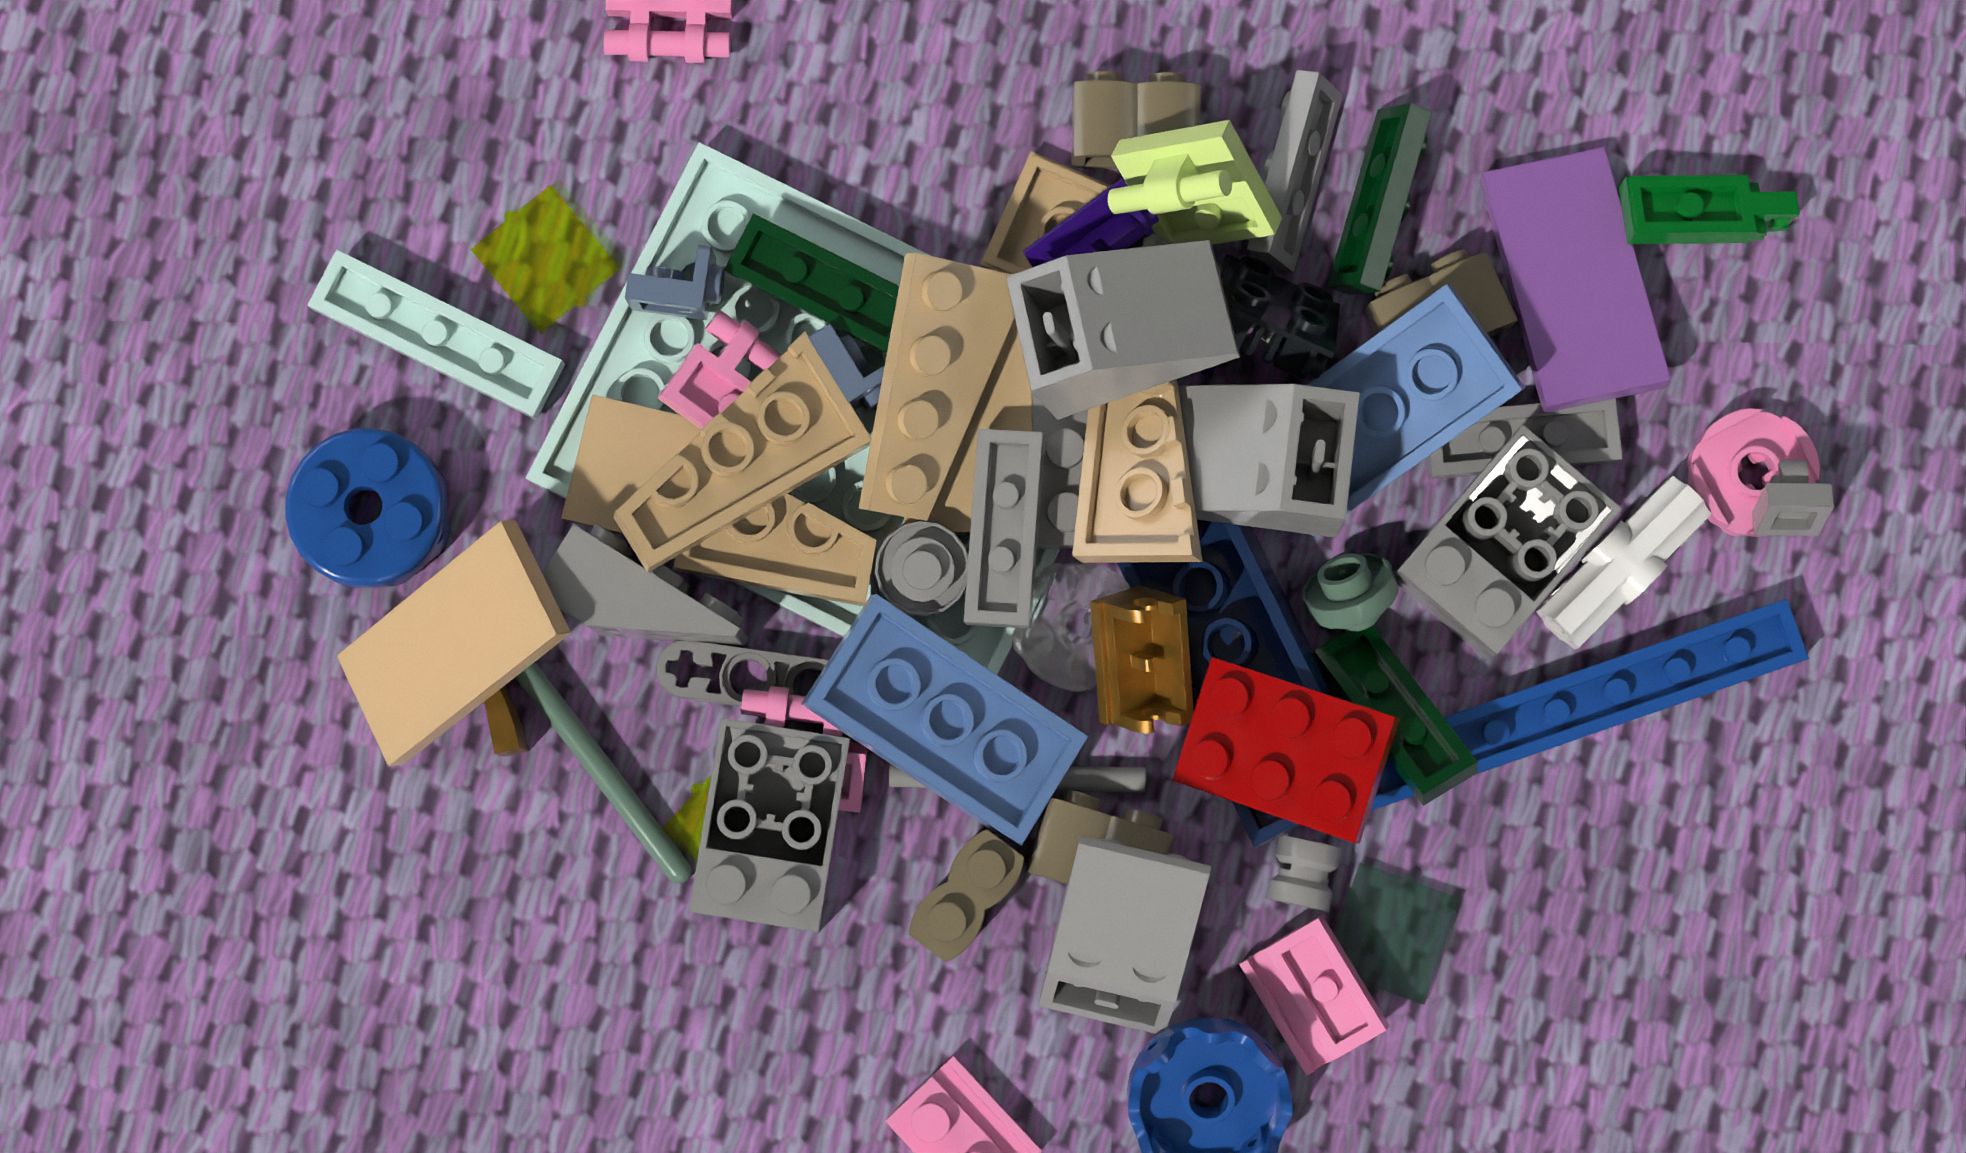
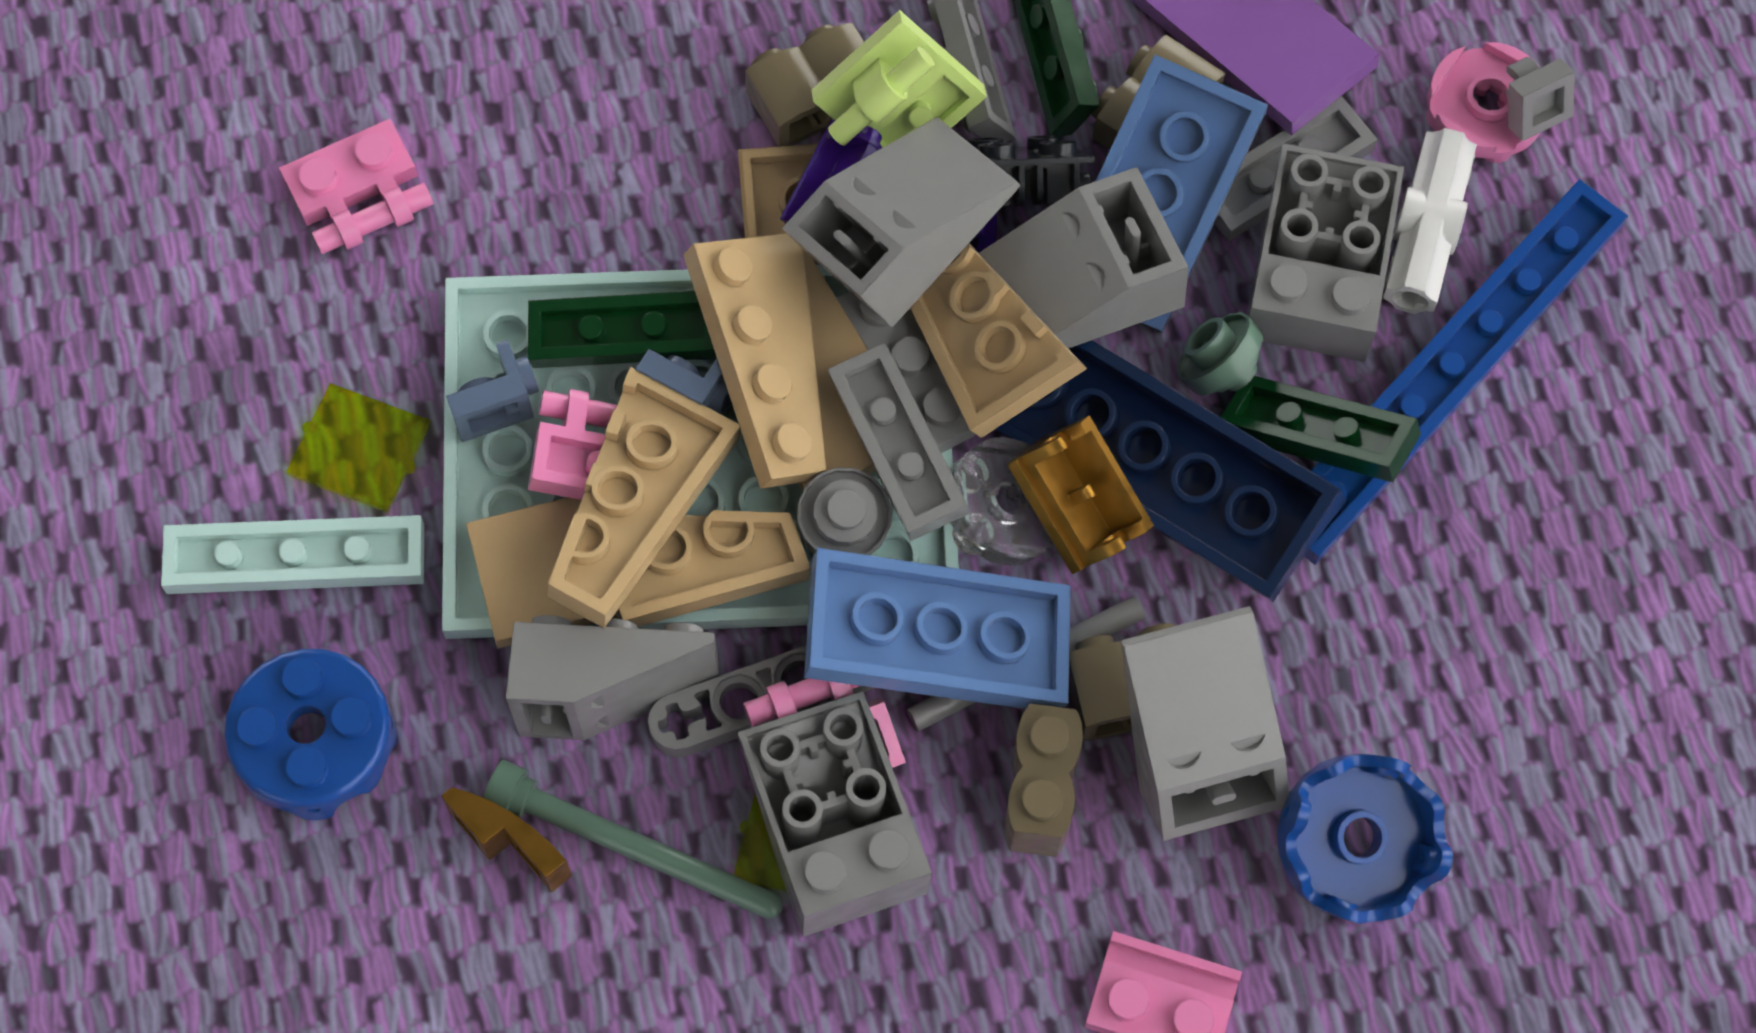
camera: 30 degrees left, 15 degrees down
(453, 643) = (455, 794): tan tile -> none
(1286, 750) = (1249, 497): red plate -> none
(1304, 873) = (1323, 607): light grey wheel -> none
(1314, 995) = (1396, 705): bright pink plate -> none
(1395, 931) = (1427, 624): piece -> none

